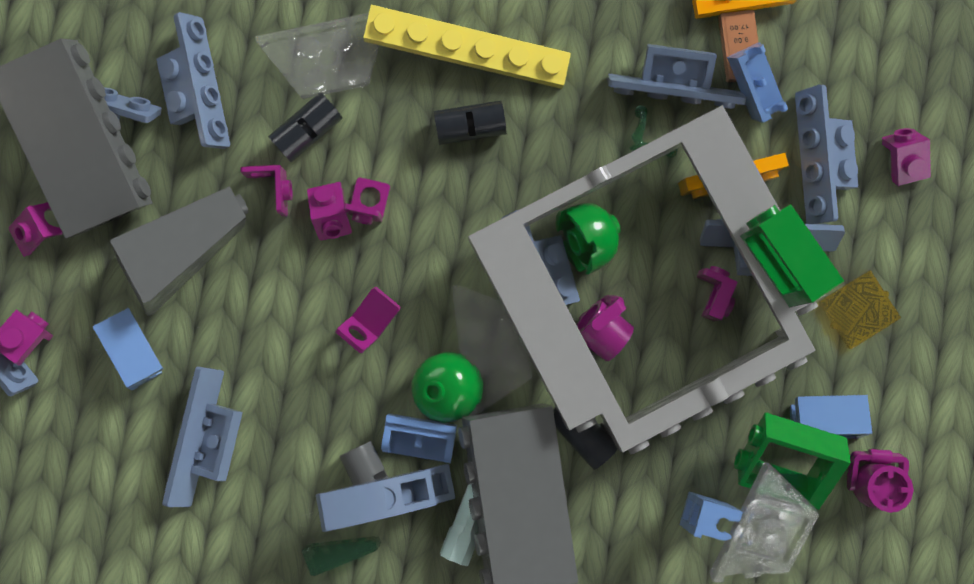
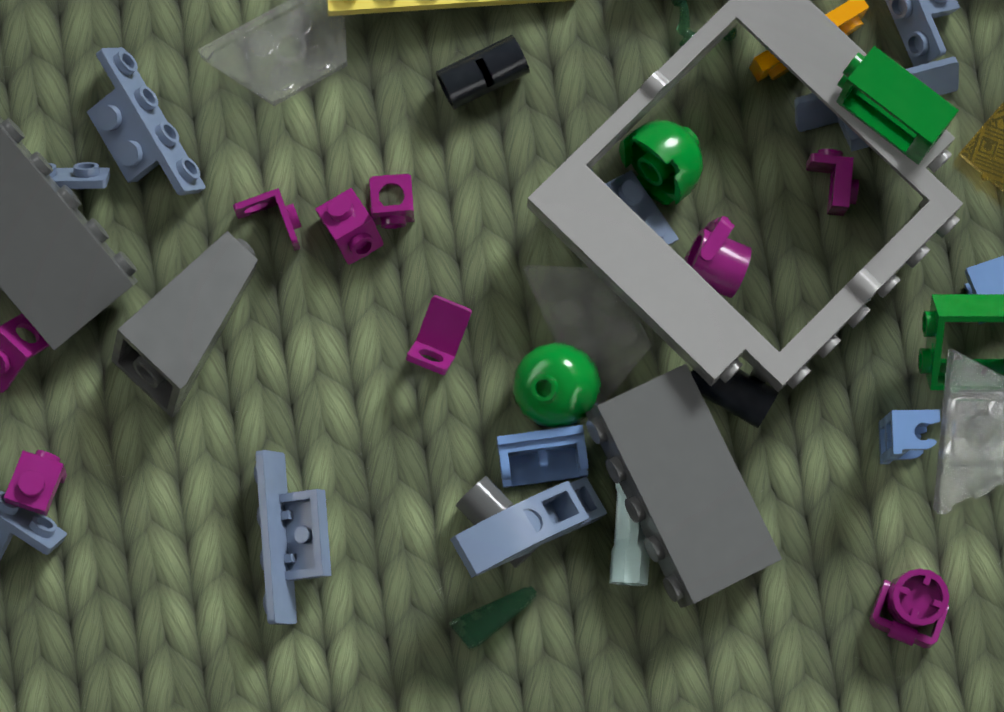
camera: 15 degrees left, 5 degrees down
(128, 349) = (166, 459): medium blue hinge -> none
(305, 127) = (291, 136): black pin -> none

